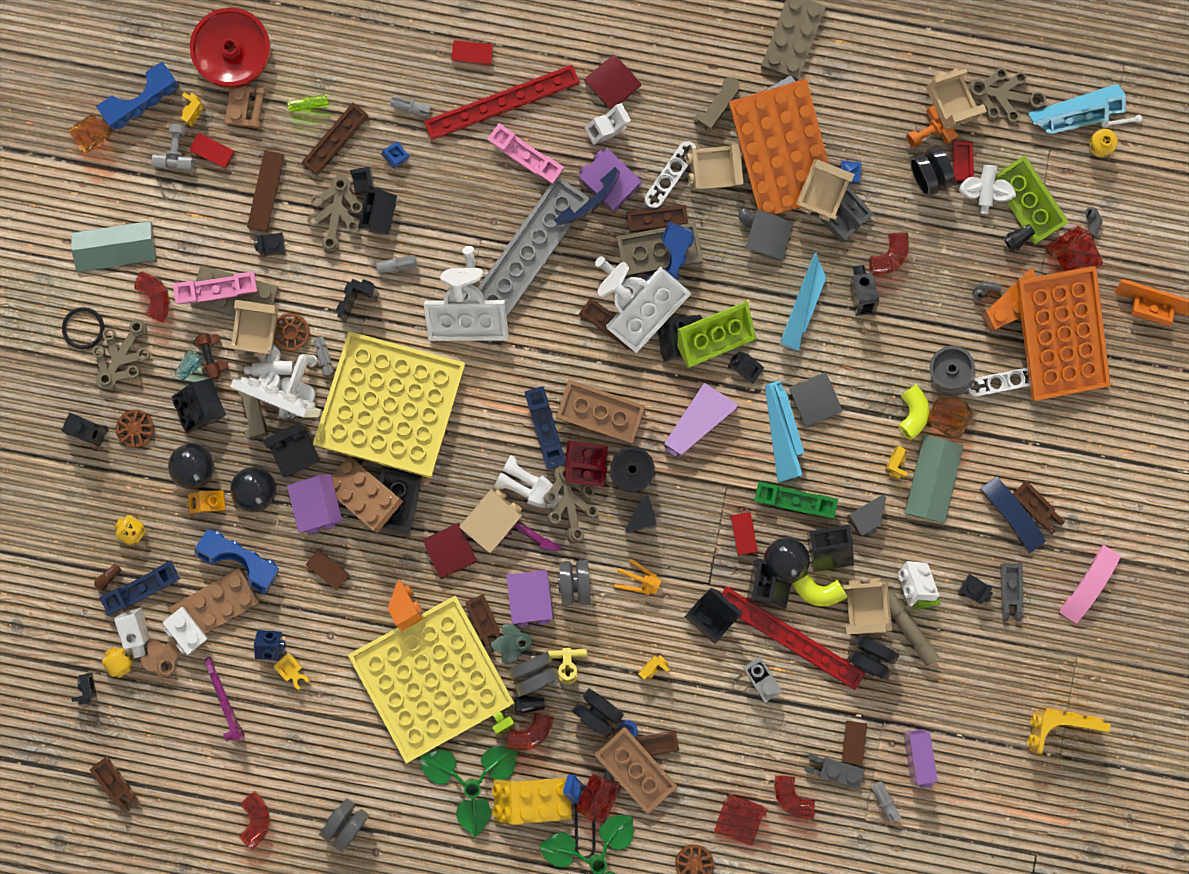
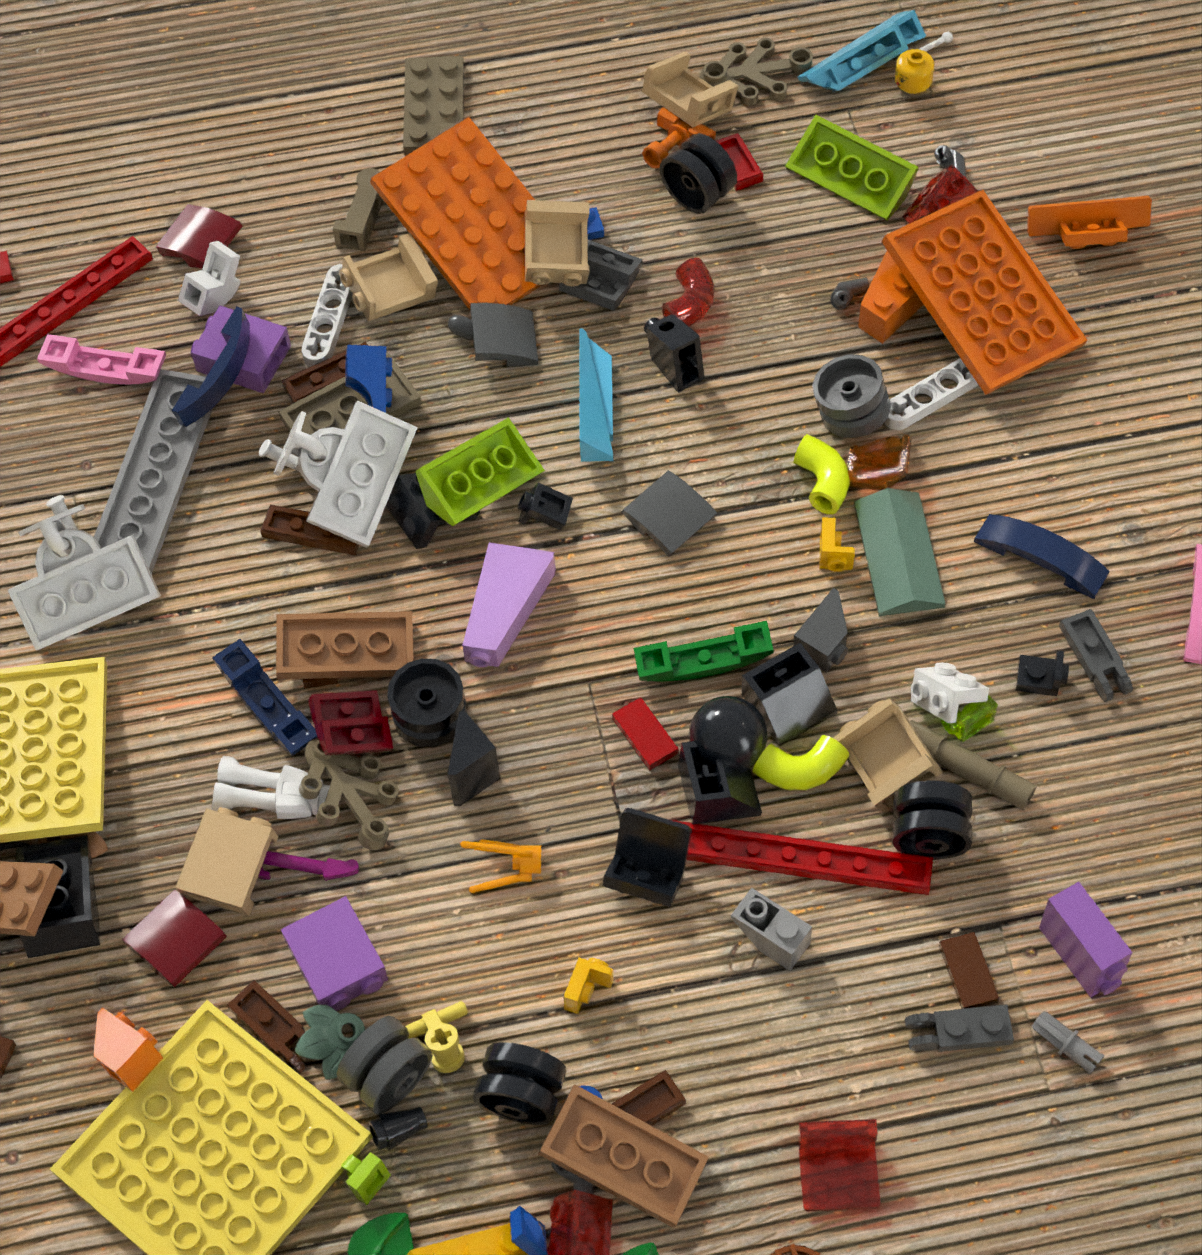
camera: 20 degrees left, 25 degrees down
(533, 736) = (424, 1176): clear red cylinder -> none
(574, 583) = (396, 898): dark grey wheel -> none
(784, 433) = (645, 574): medium azure wedge -> none
(790, 801) = (911, 1104): clear red cylinder -> none
(987, 188) = (786, 176): white plant -> none
(1017, 238) = (859, 215): black cone -> none
(1037, 506) = (1076, 528): reddish brown hinge -> none

